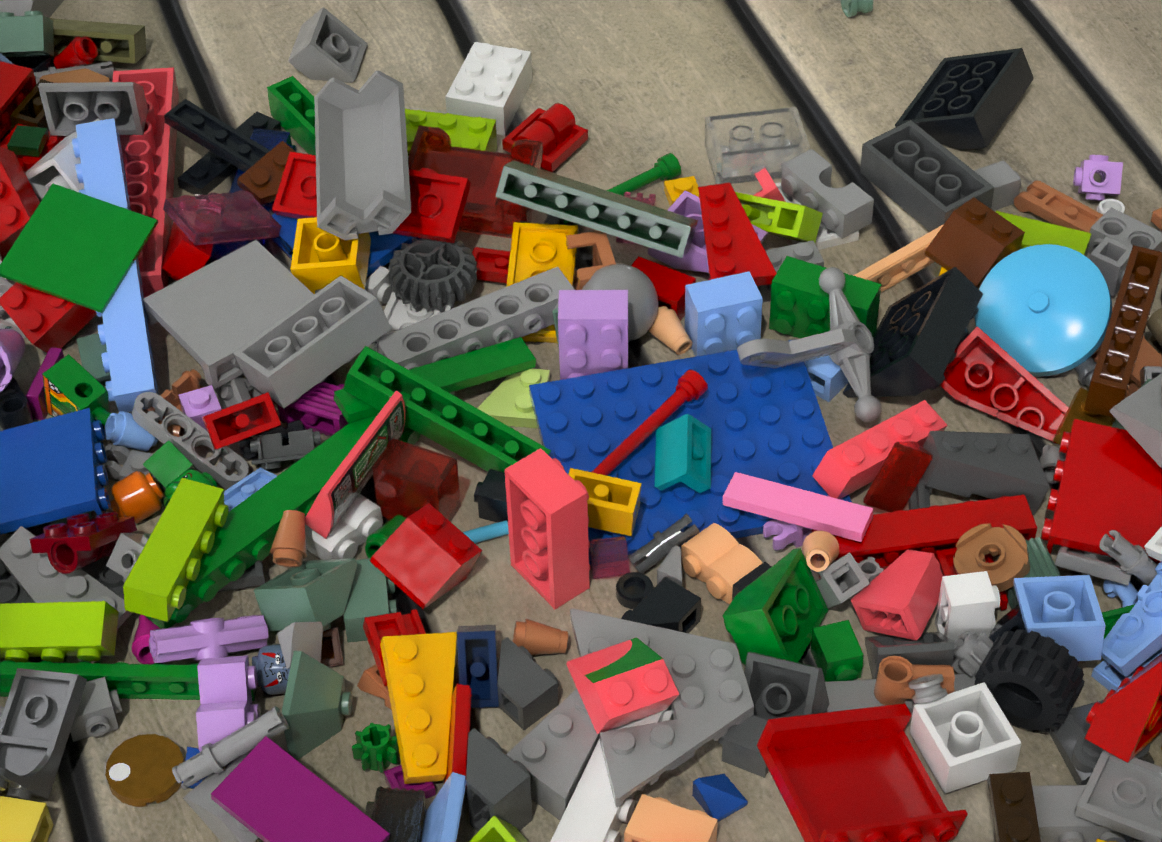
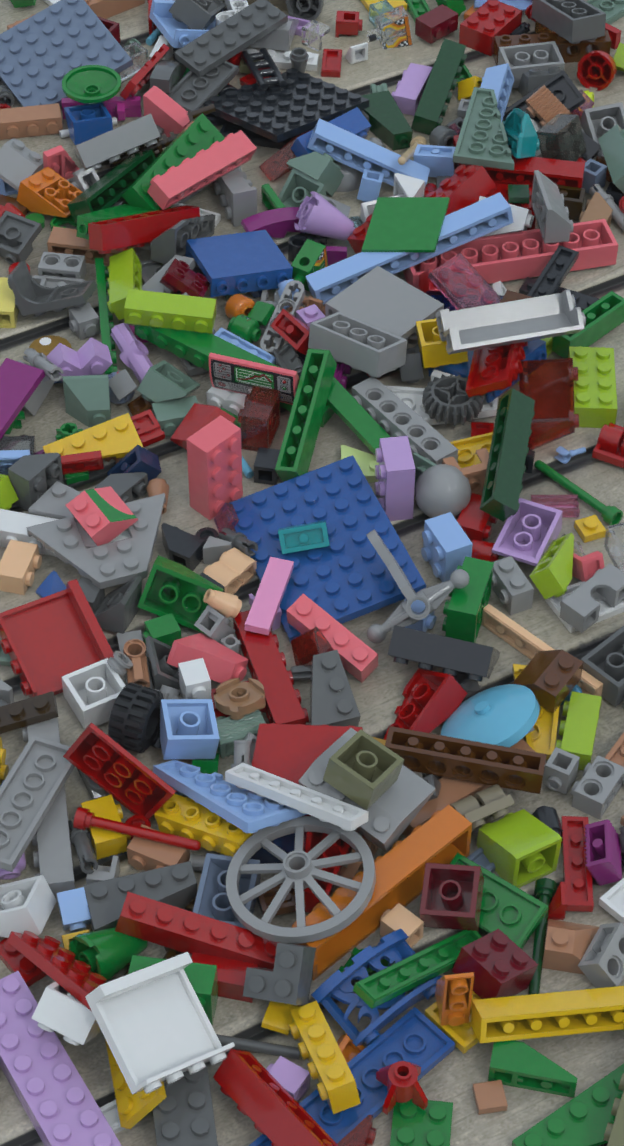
camera: 80 degrees right, 0 degrees up
(290, 540) = (197, 367): nougat cone -> none
(611, 501) = (250, 496): yellow brick -> none
(690, 387) = (358, 527): red piece -> none
(730, 237) = (500, 540): red wing -> none

